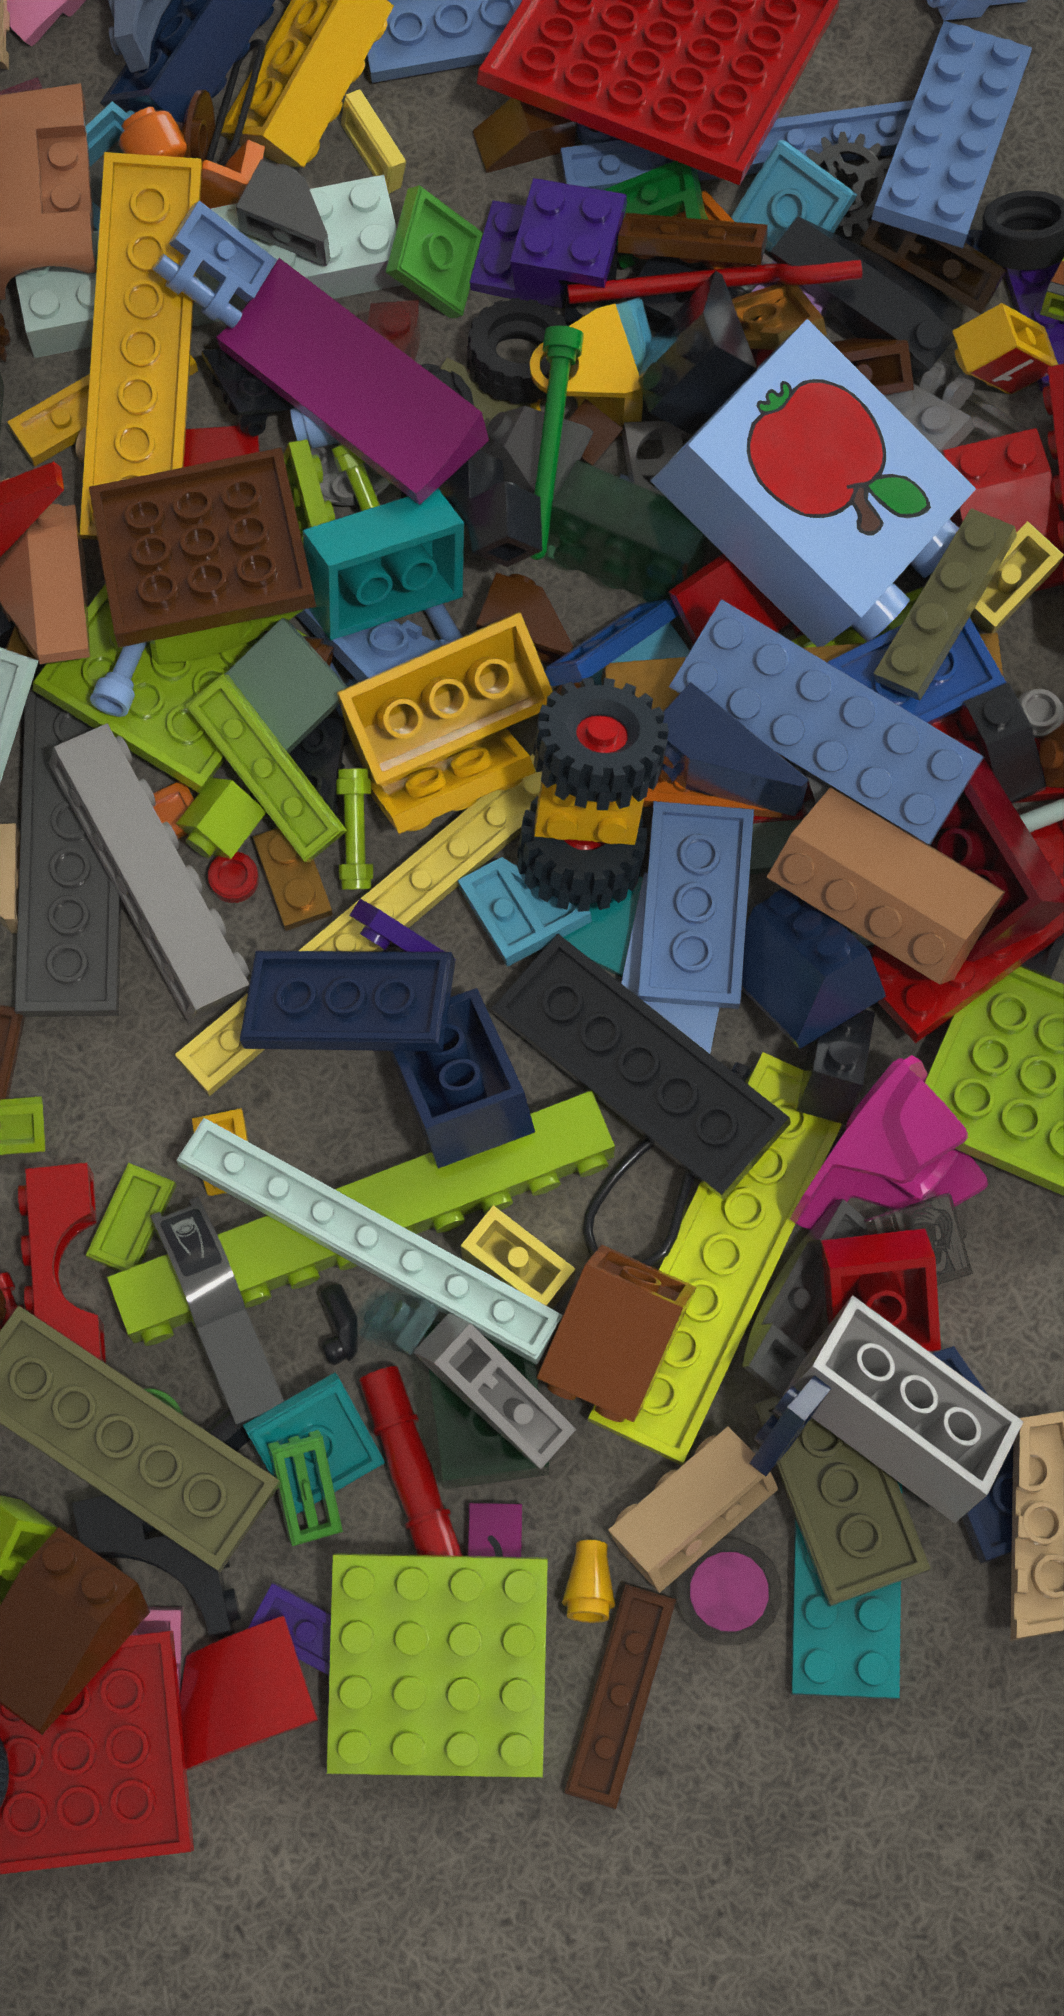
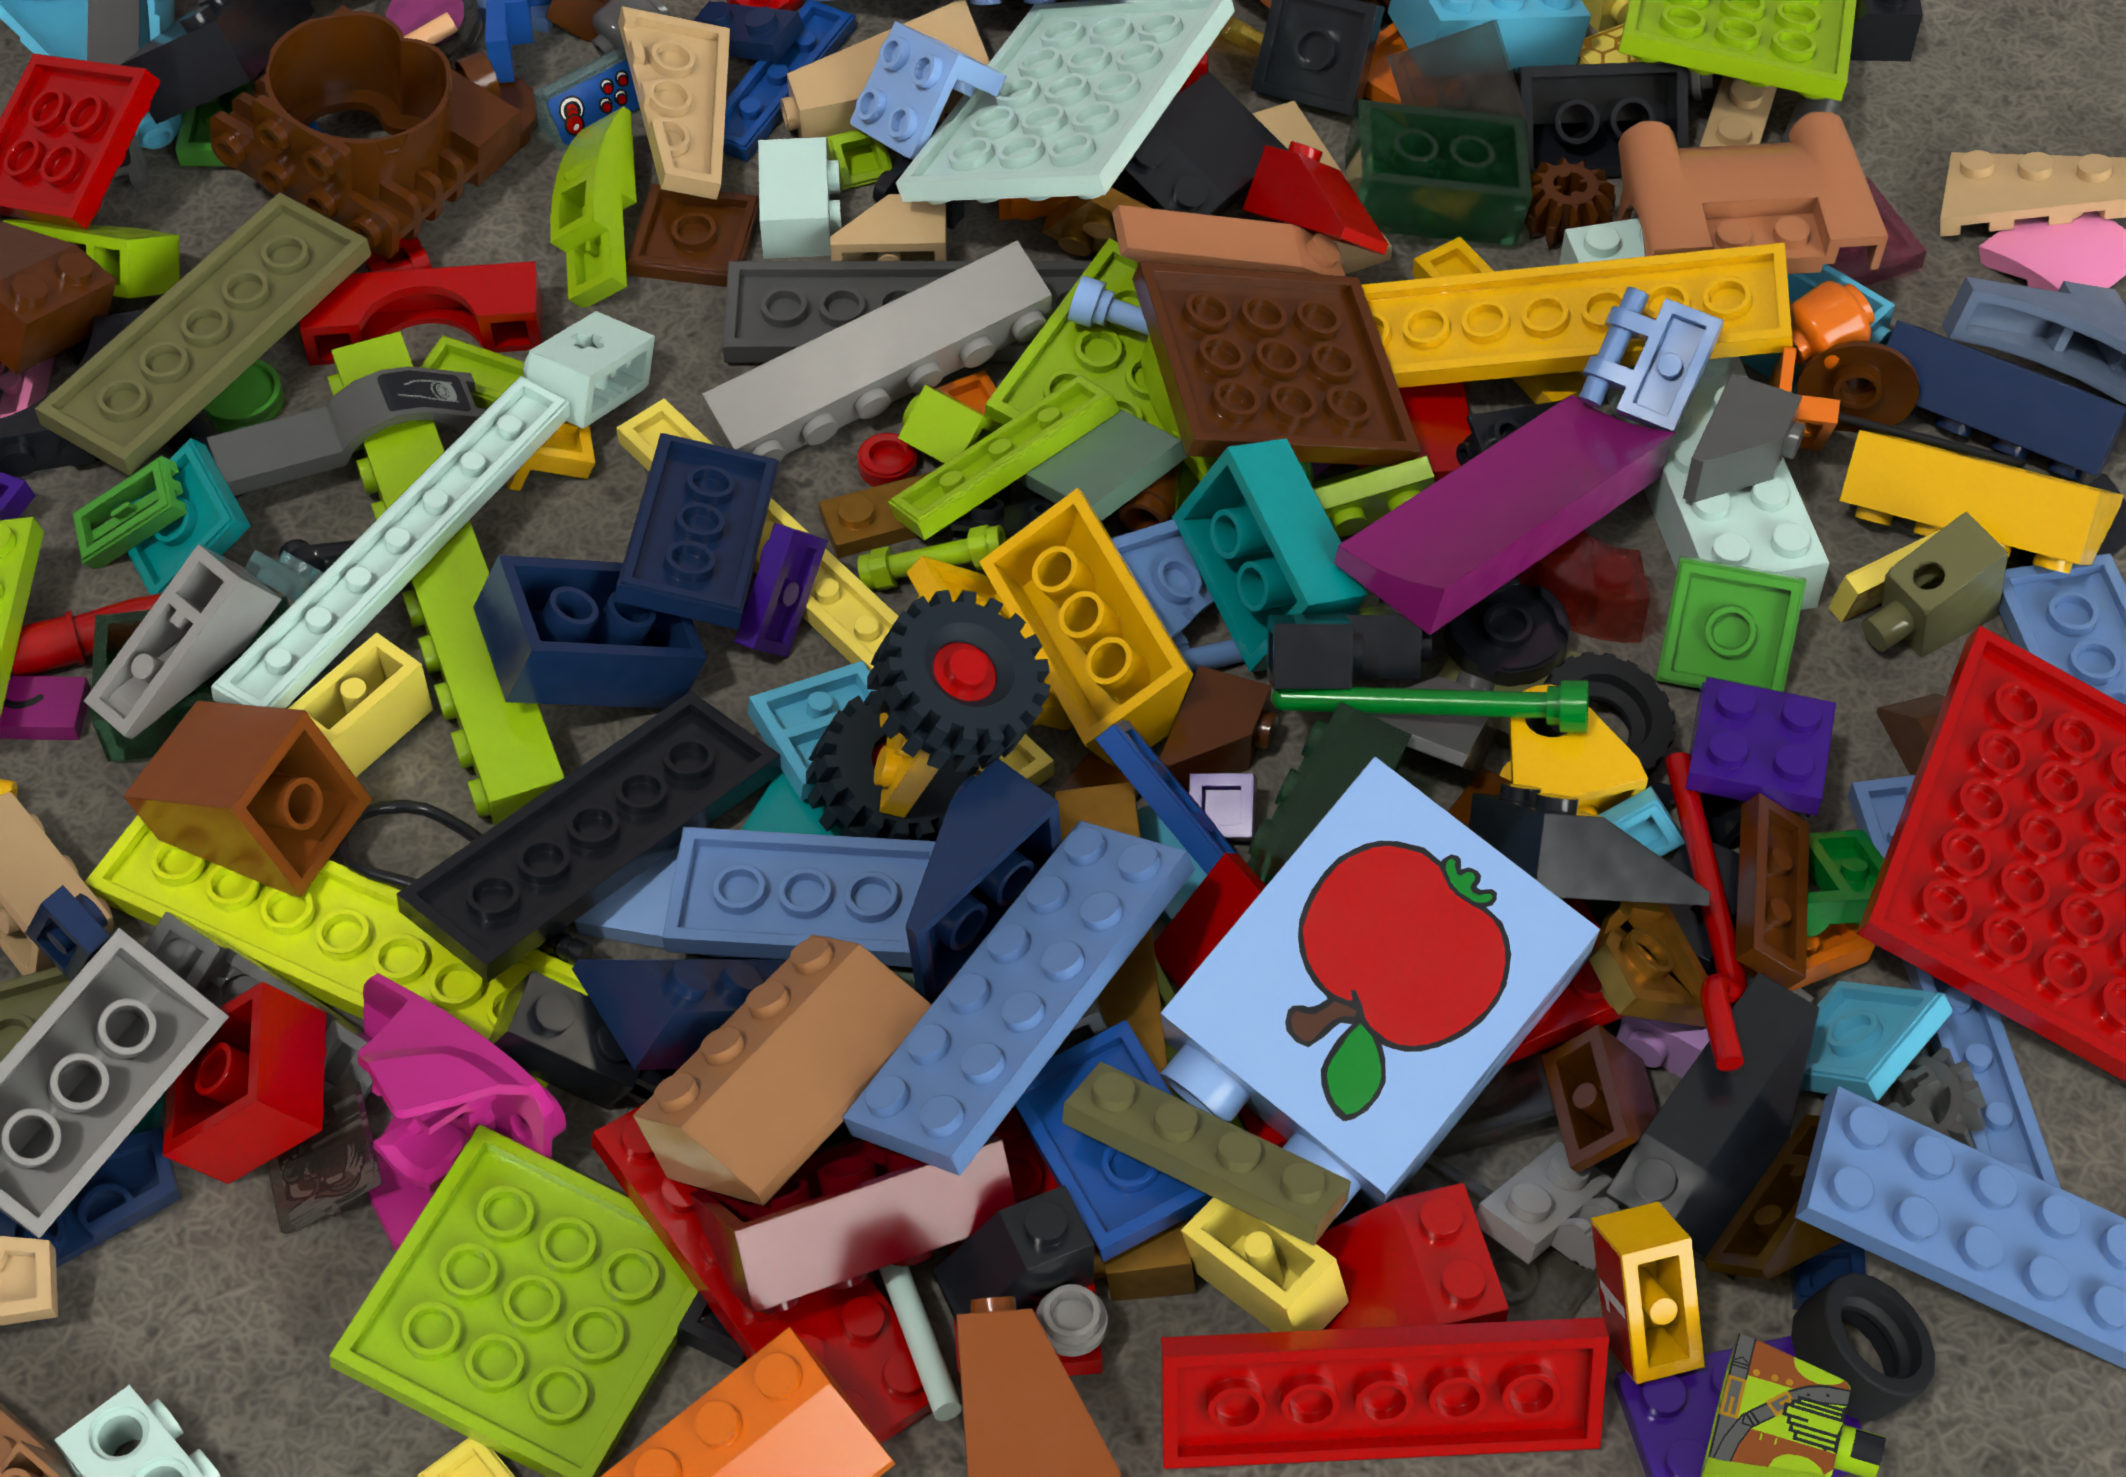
camera: 90 degrees right, 20 degrees down
(146, 1113) = (593, 366): none -> light aqua brick
(402, 105) = (1940, 589): none -> olive torso
(590, 612) = (1228, 802): none -> plate

